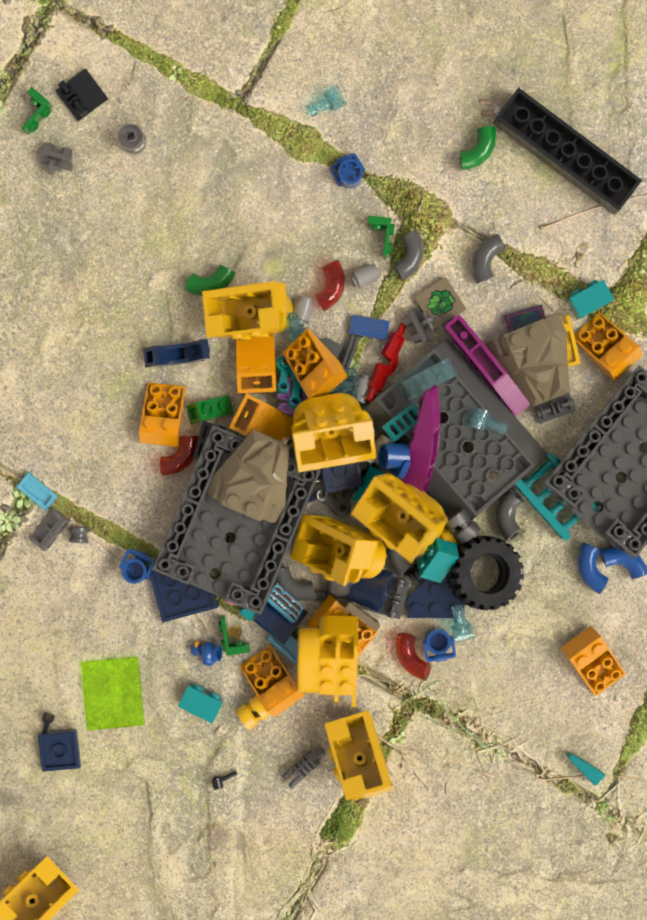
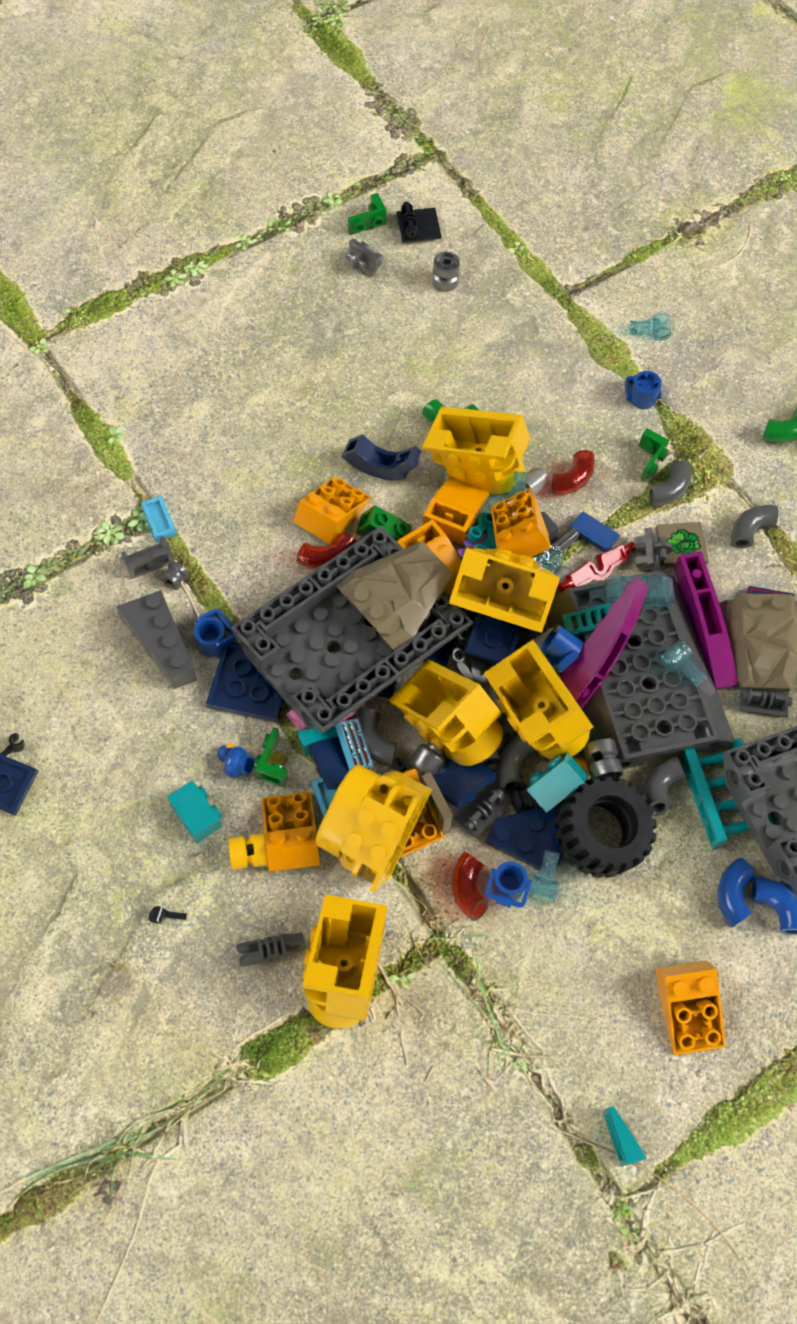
camera: 25 degrees right, 25 degrees down
(99, 589) = (157, 633): none -> dark grey wedge
(112, 693) = (103, 755): clear neon green piece -> none
(365, 276) = (614, 482): light grey brick -> none

